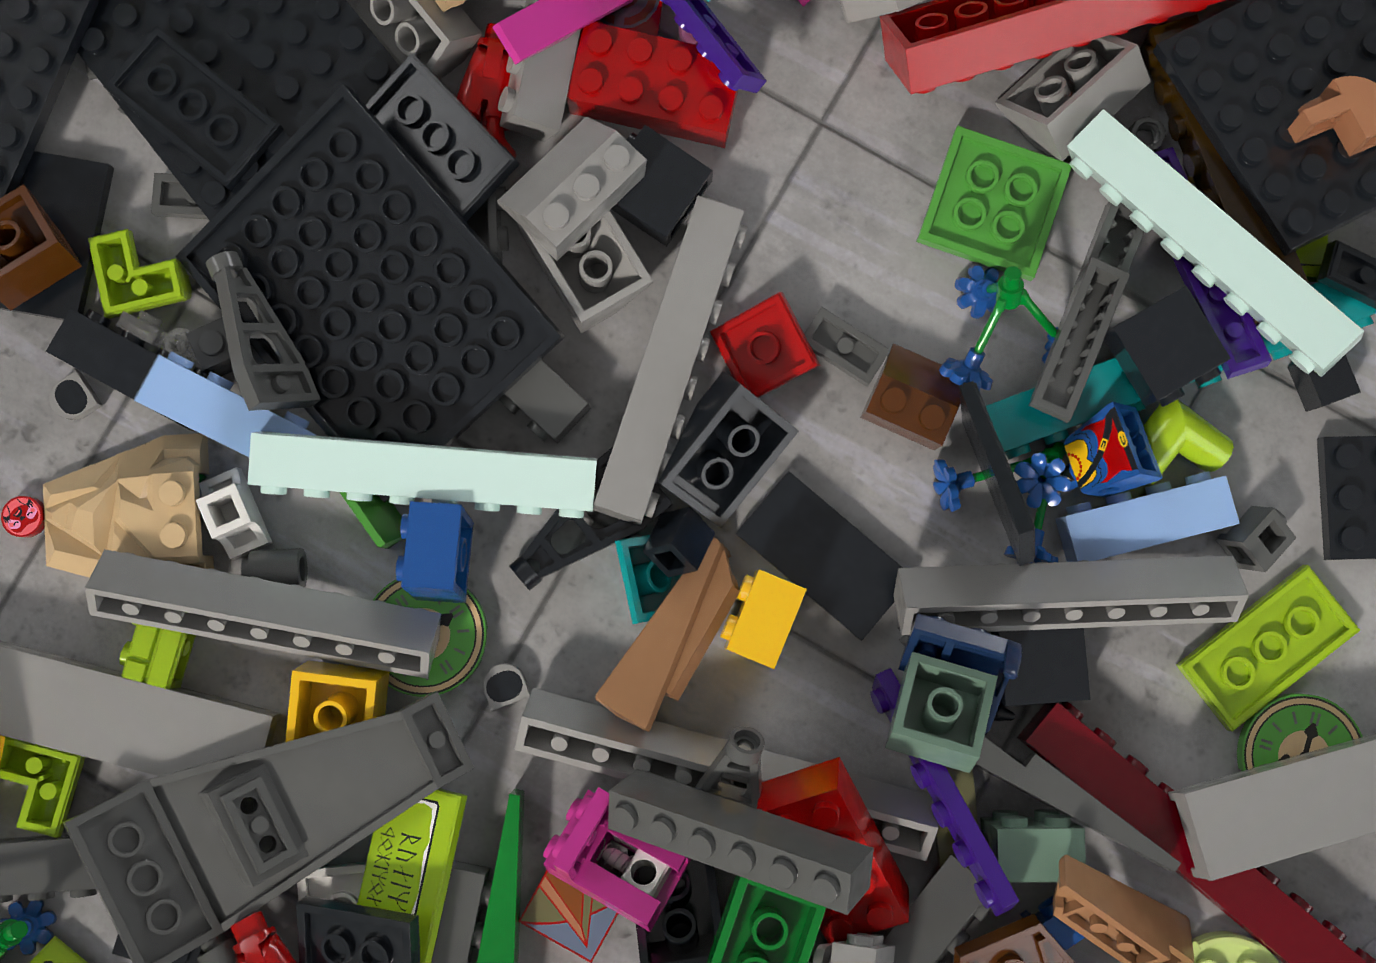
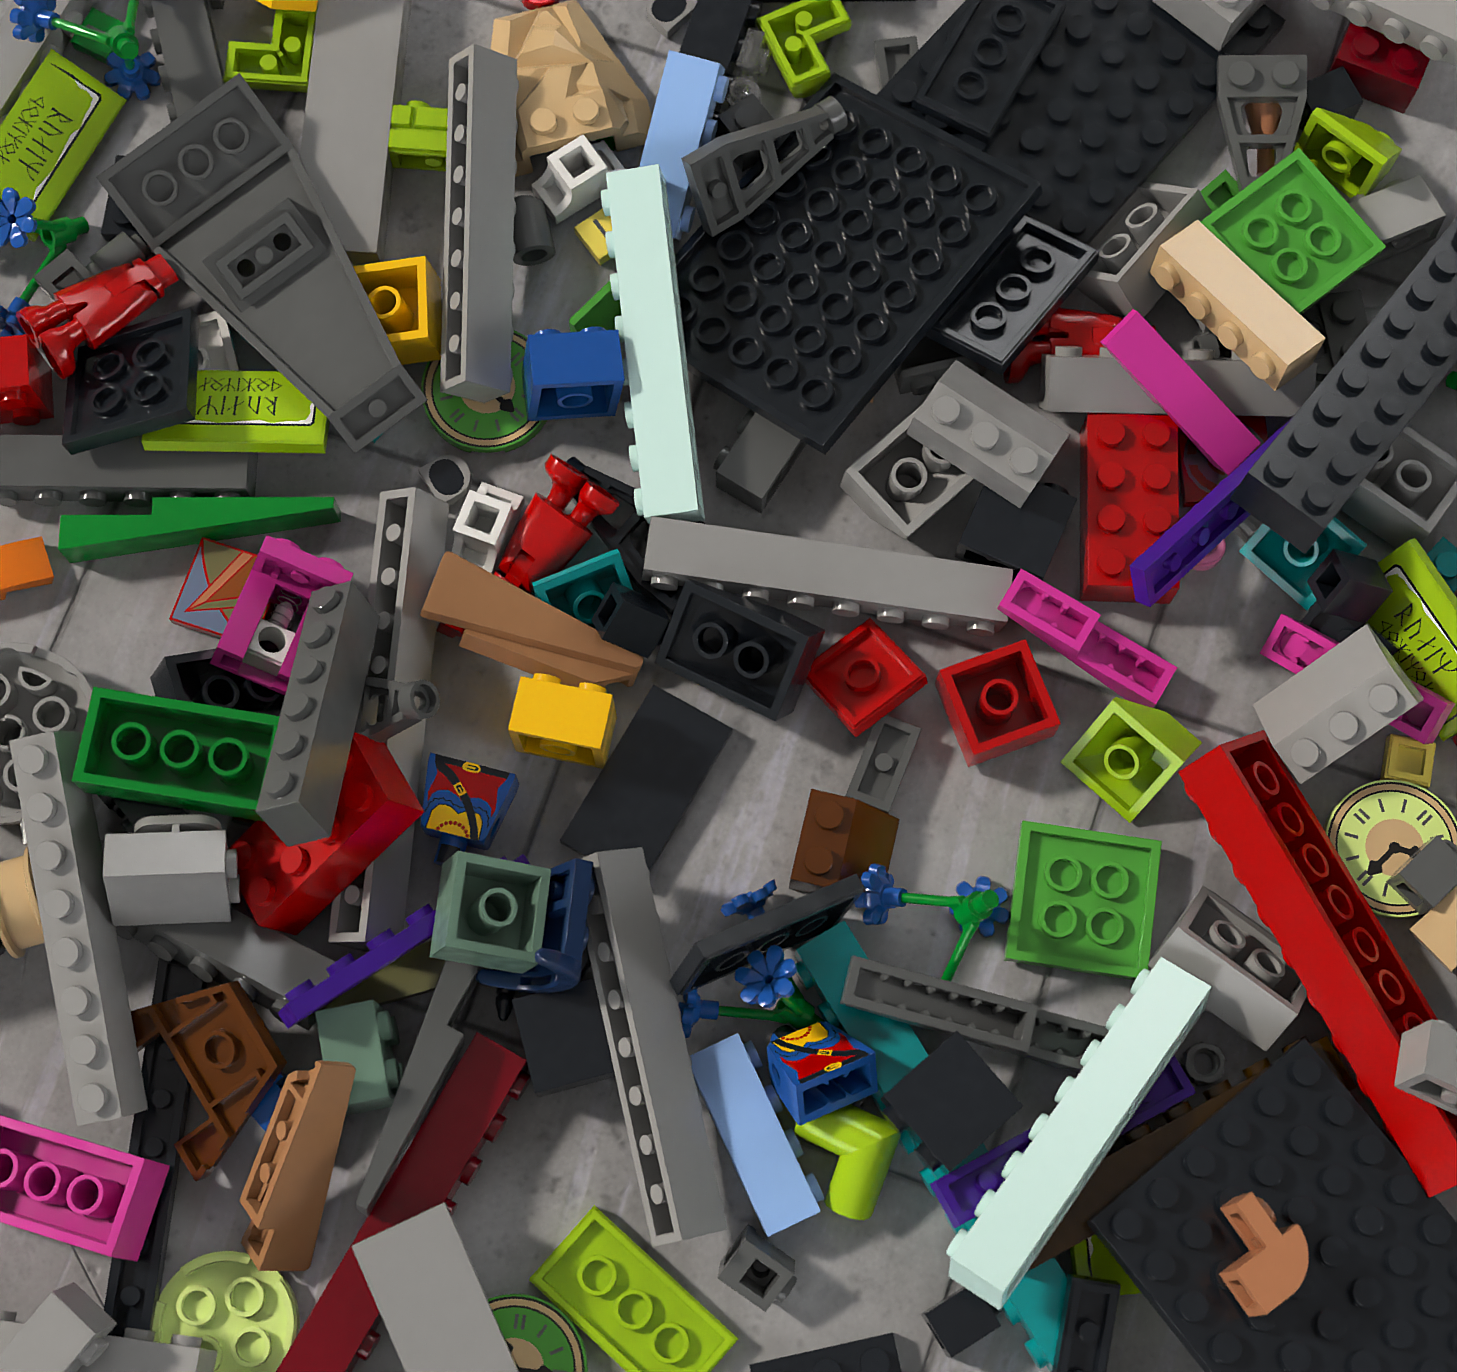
camera: 80 degrees right, 10 degrees down
(292, 506) = (592, 235): none -> light yellow tile
(563, 658) = (486, 525): none -> white brick
(585, 605) = (547, 535): none -> red piece
(772, 146) = (1085, 641): none -> dark pink slope
(814, 236) = (997, 703): none -> red brick
(817, 721) = (464, 804): none -> torso
(880, 132) = (1130, 754): none -> lime slope

